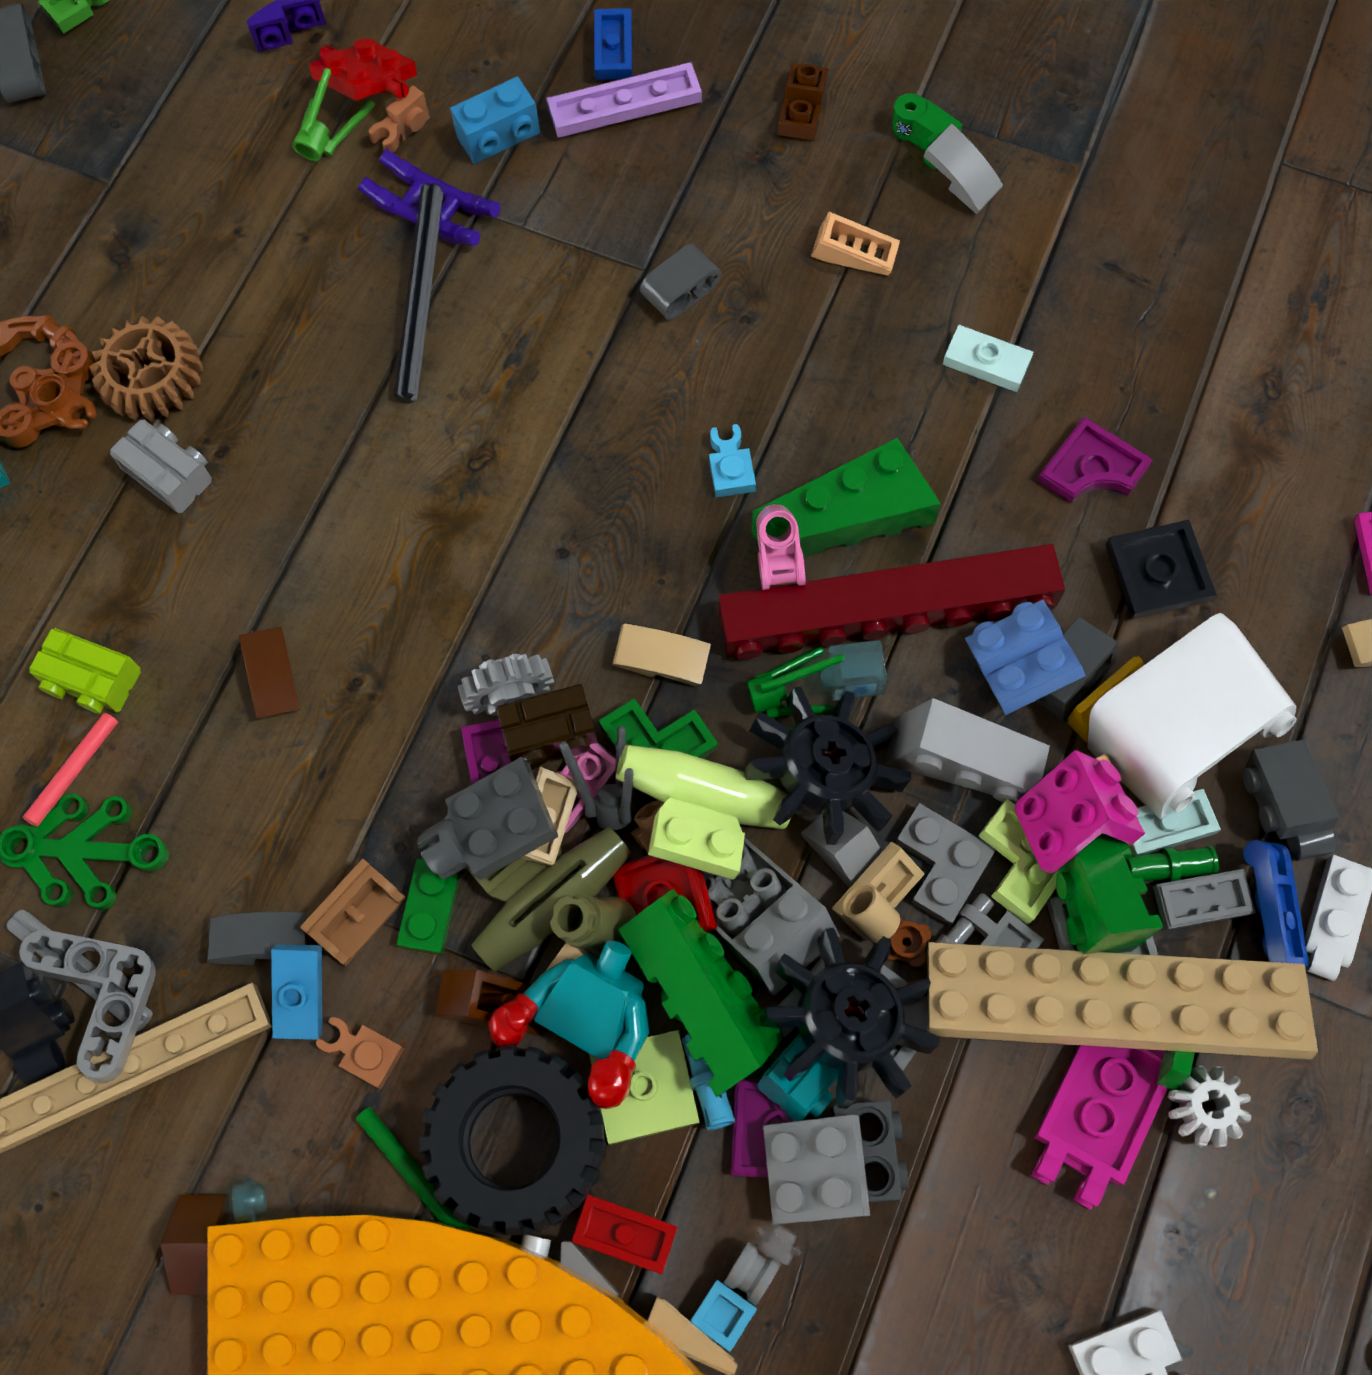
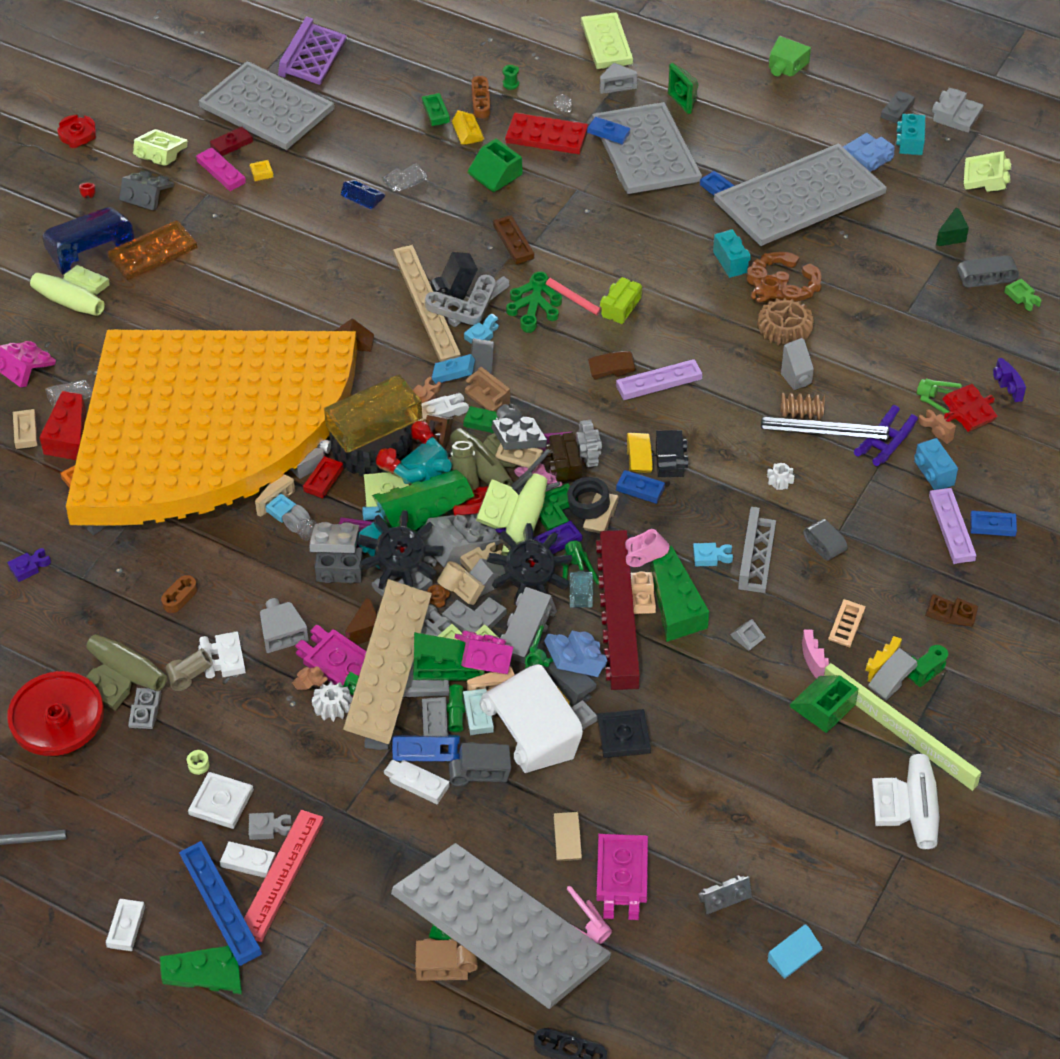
camera: 95 degrees right, 20 degrees down
(162, 465) = (728, 327): light grey brick -> none
(176, 954) = (484, 331): none -> medium azure plate
(248, 1200) = (366, 353): clear light blue plate -> none
(273, 336) = (796, 364): none -> light grey slope
(305, 583) = (659, 379): none -> lavender plate
(370, 327) = (802, 407): none -> medium nougat piece
(413, 1017) = (445, 406): none -> white hinge
(496, 598) = (639, 453): none -> yellow slope
(499, 1127) = (373, 413): none -> clear yellow brick
(506, 544) = (670, 453): none -> black hinge
(542, 356) = (780, 476): none -> white gear
(587, 592) = (640, 486): none -> blue plate
(650, 636) = (584, 485): none -> black tyre
(715, 395) = (749, 548): none -> light grey fence
(730, 726) = (566, 533): none -> dark purple plate
(808, 868) = (471, 558): none -> tan plate
(850, 560) = (643, 592): none -> light nougat slope
(900, 395) = (748, 635): none -> light grey slope
(943, 192) = (880, 658): none -> yellow slope
(951, 282) = (813, 655): none -> bright pink slope
(987, 358) = (767, 677): light aqua plate -> none
(1012, 1072) = (362, 624): none -> reddish brown slope
(1034, 262) = (826, 701): none -> green slope
(1043, 1251) = (281, 626): none -> light grey torso
(1054, 163) = (912, 733): none -> yellowish green tile
(1064, 718) = (537, 655): none -> green plant
(1092, 461) = (696, 717): magenta tile -> none
(1142, 640) = (584, 714): none -> light grey plate
(1169, 1163) = (308, 677): none -> nougat plate
(1198, 144) = (913, 801): none -> white plate

